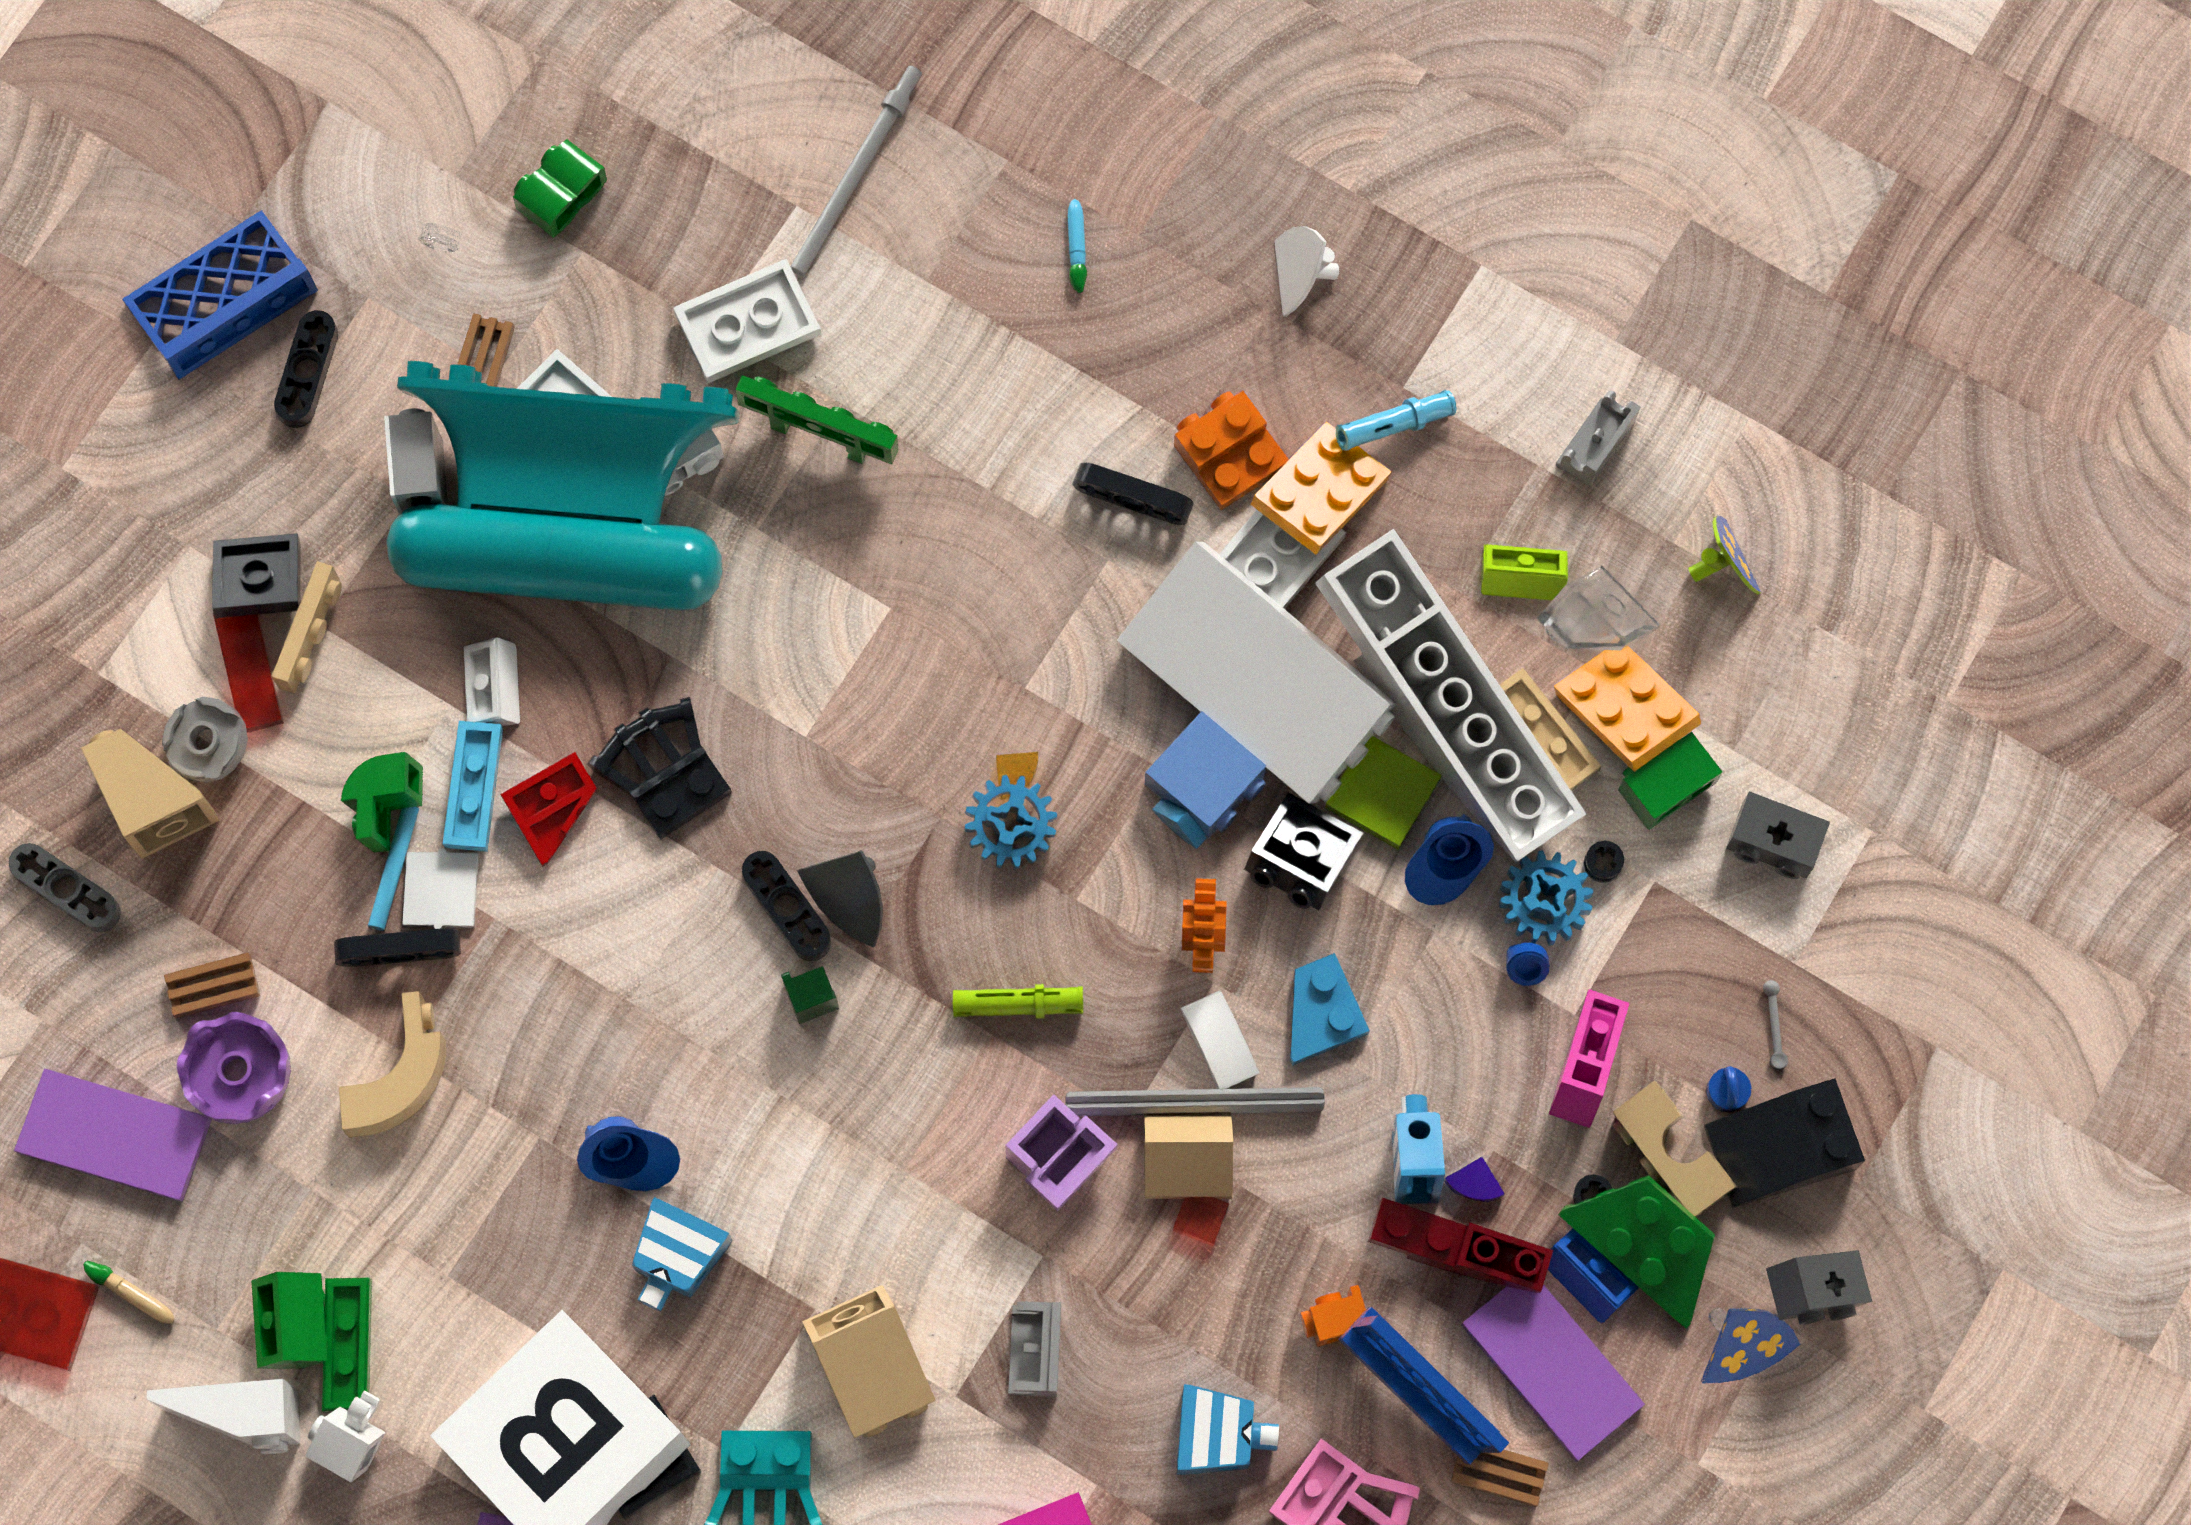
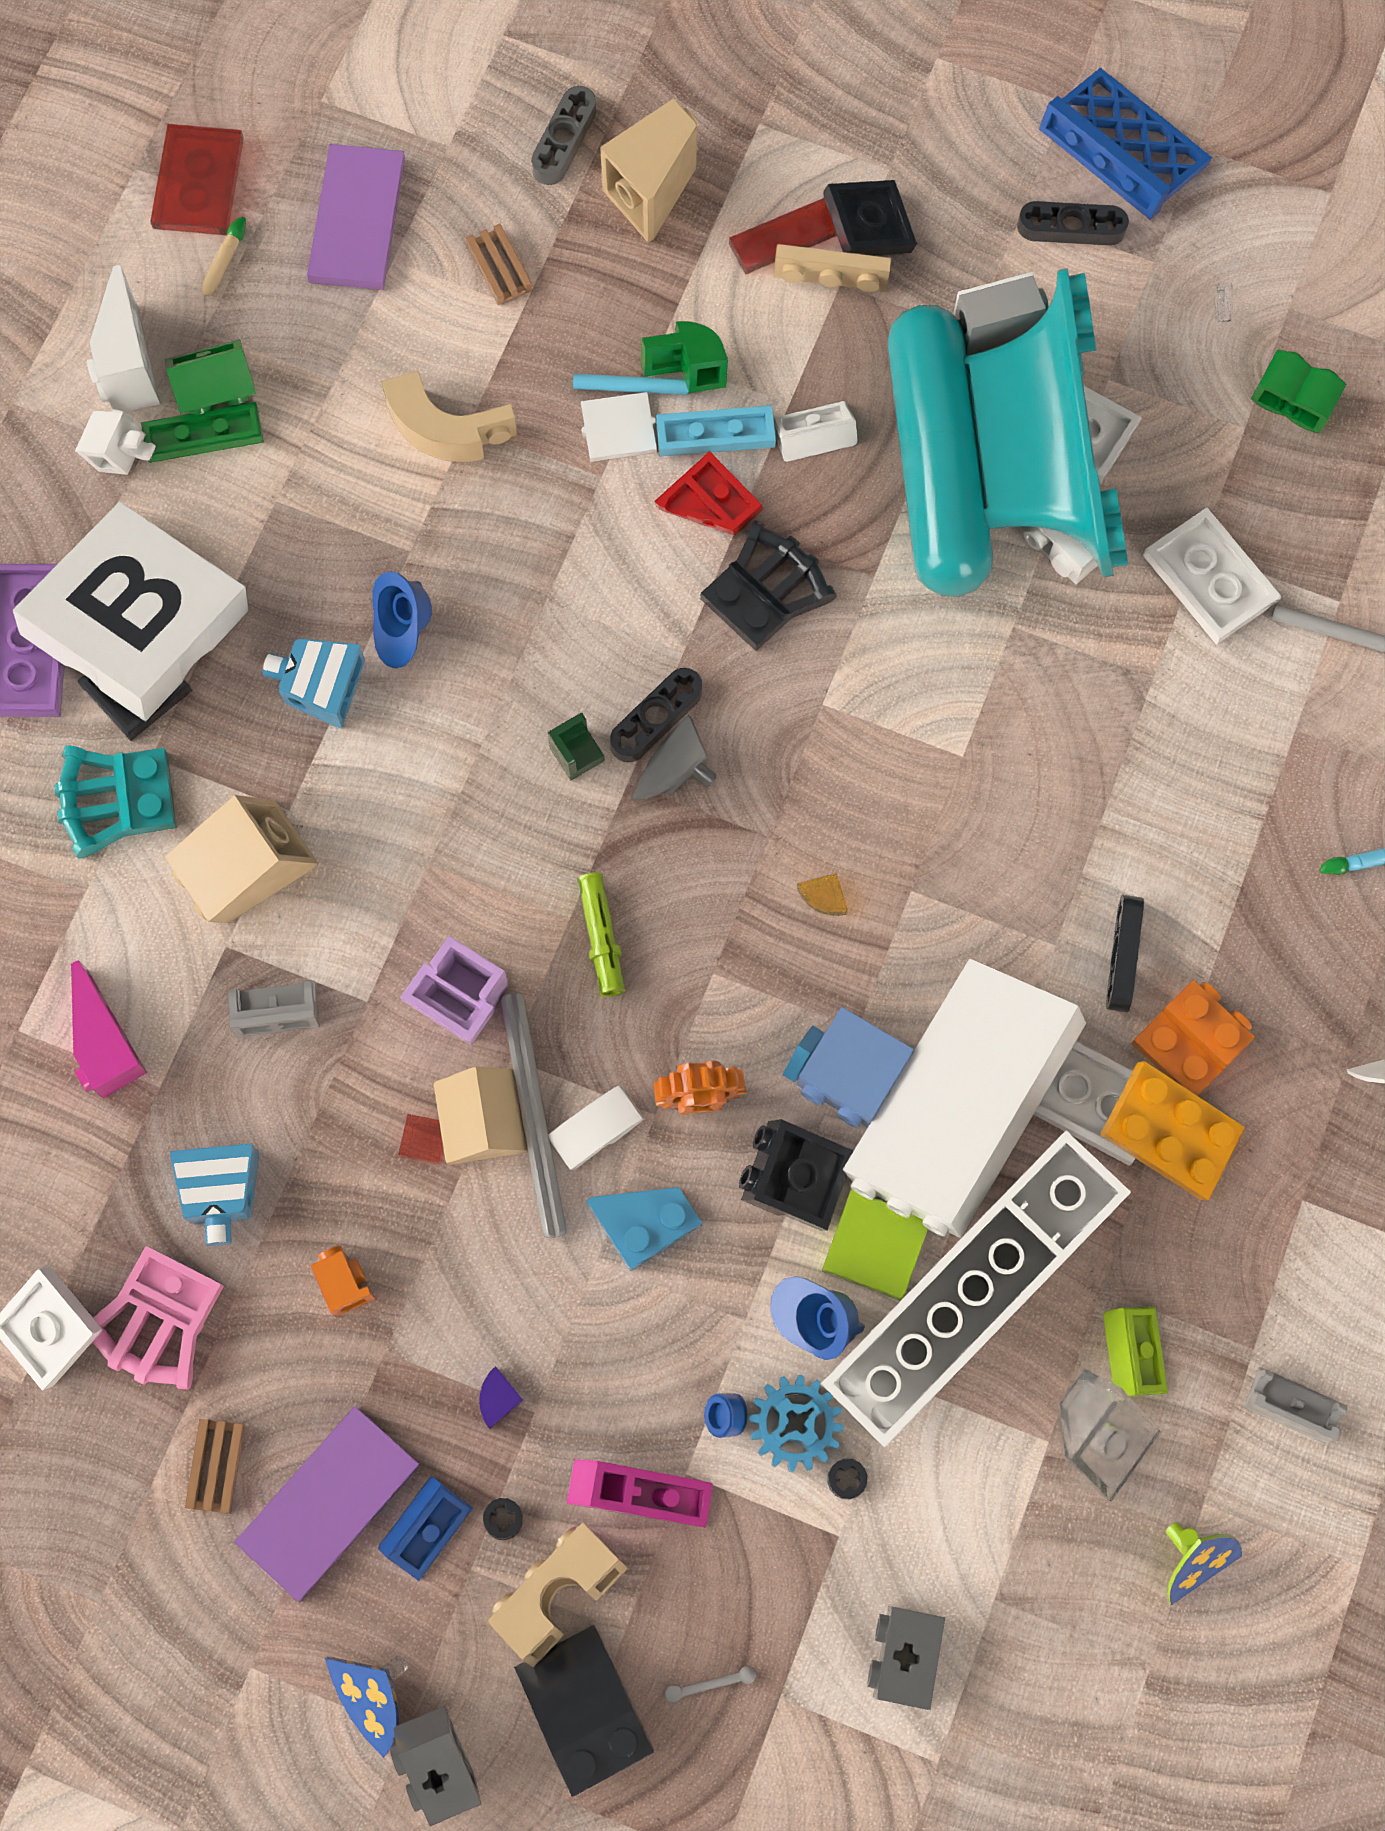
camera: 80 degrees right, 0 degrees up
(216, 1043) = (419, 270): medium lavender plate -> none
(226, 747) = (714, 228): light grey tile -> none
(397, 947) = (556, 399): black beam -> none
(491, 326) = (1122, 356): medium nougat tile -> none
(831, 424) = (1128, 628): green hinge -> none
(1030, 825) = (754, 895): dark azure gear -> none
(1411, 415) = (1270, 1206): medium azure pin -> none
(1417, 1153) = (496, 1338): dark azure torso -> none
(1421, 1387) = (276, 1372): blue fence -> none
(1460, 1247) = (426, 1391): dark red slope -> none
(1551, 730) = (970, 1396): tan plate -> none
(1627, 706) = (1011, 1477): light orange plate -> none
(1649, 1241) = (459, 1580): green wing -> none
(1669, 780) = (943, 1531): green brick -> none
(1728, 1089) = (633, 1644): blue tile -> none

